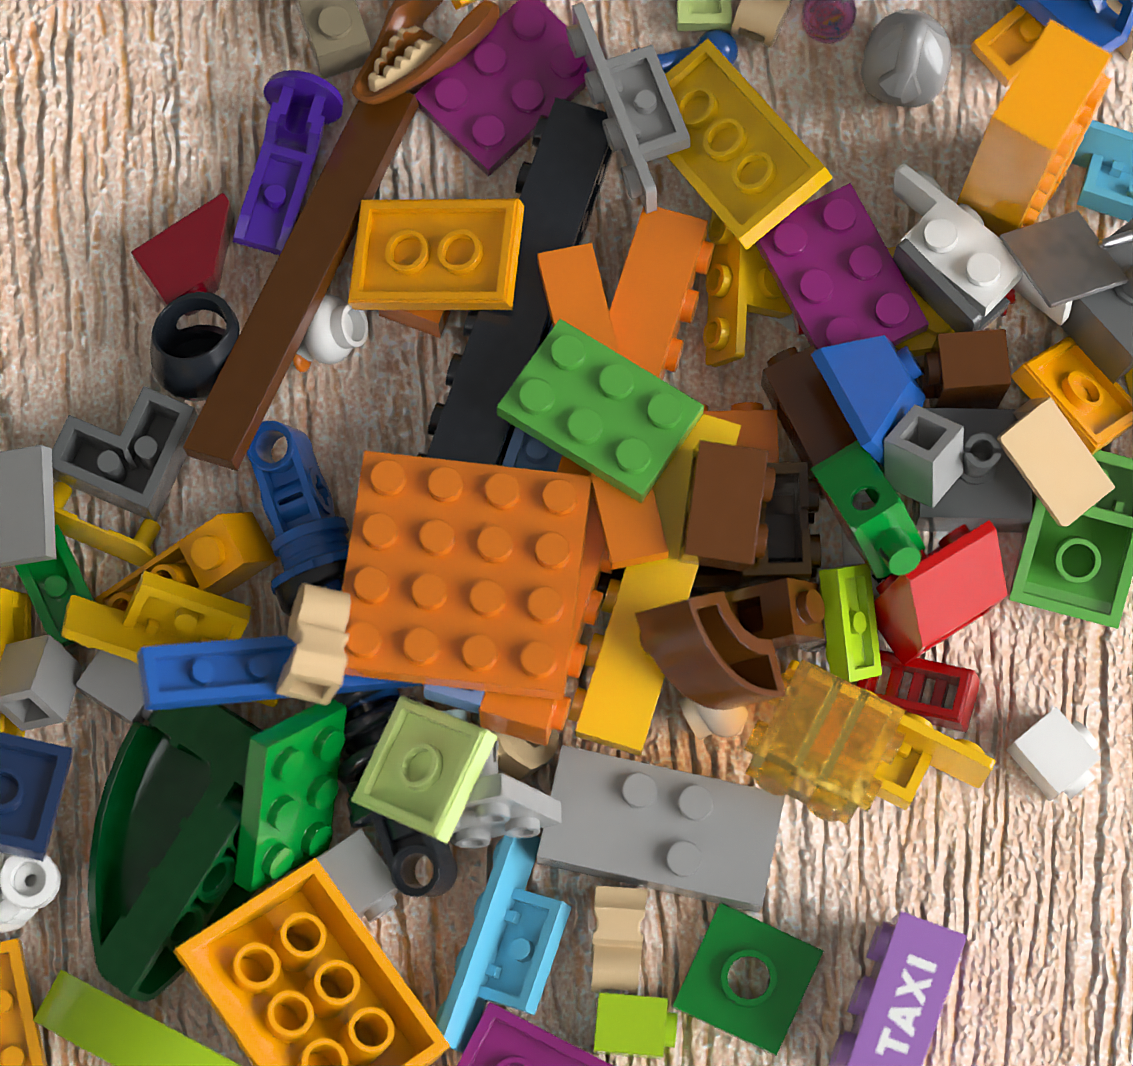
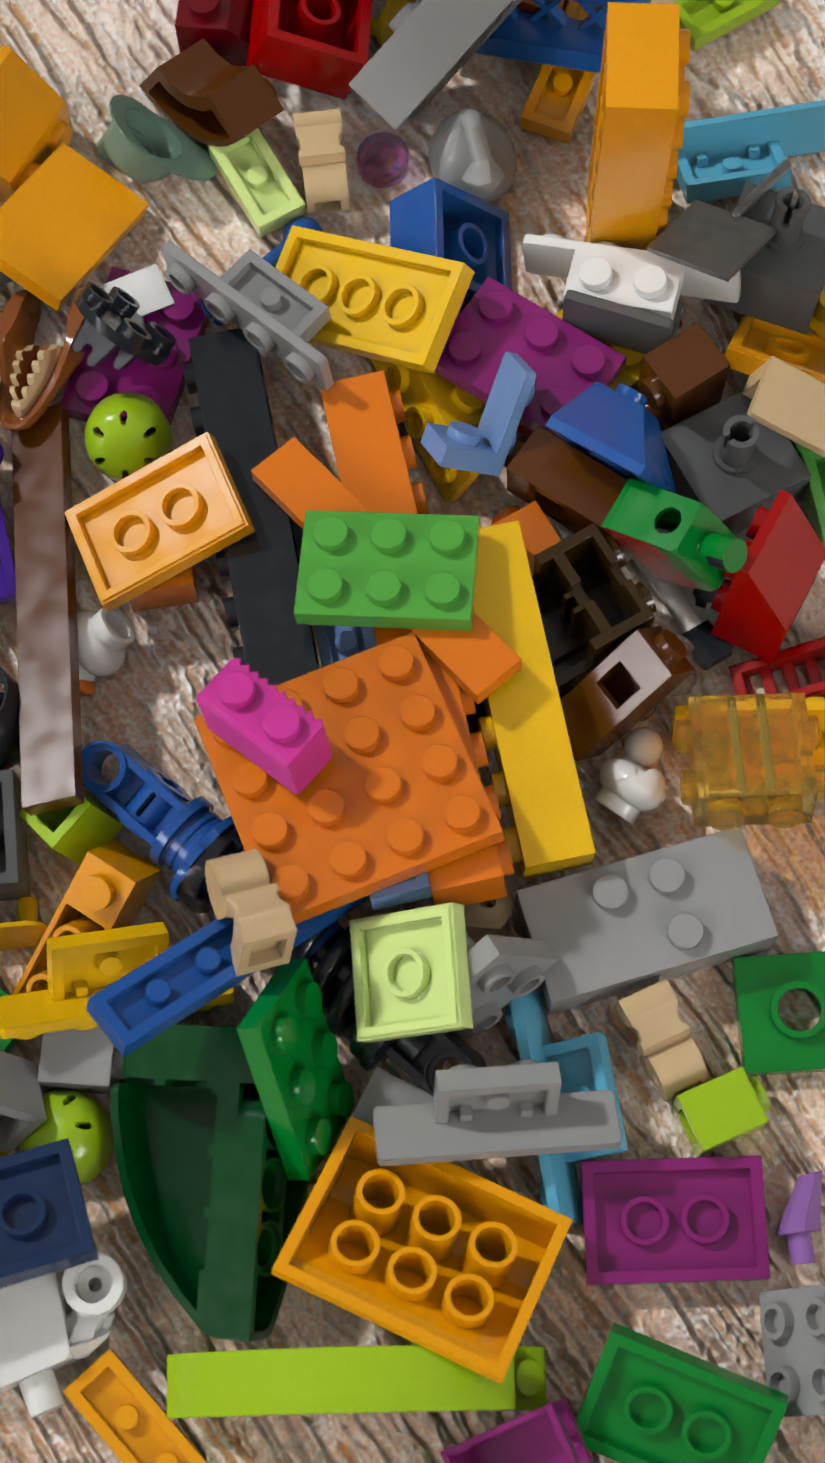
camera: 25 degrees left, 5 degrees down
(78, 732) = (90, 1146): none -> lime helmet
(220, 488) = (76, 828): none -> lime brick
(414, 494) = (265, 725): none -> dark pink brick
(434, 926) = (496, 1115): none -> light grey bracket
(449, 165) = (126, 442): none -> lime helmet
(499, 58) = (116, 325): none -> black plate
(536, 29) = (146, 287): none -> white sticker
(710, 653) = (608, 730): reddish brown brick -> none
(725, 506) = (548, 593): reddish brown brick -> none
(755, 340) = (486, 447): none -> medium blue bracket
(846, 127) = (456, 227): none -> blue slope
(850, 622) = (709, 647): lime plate -> none
(923, 455) = (693, 460): light grey brick -> none

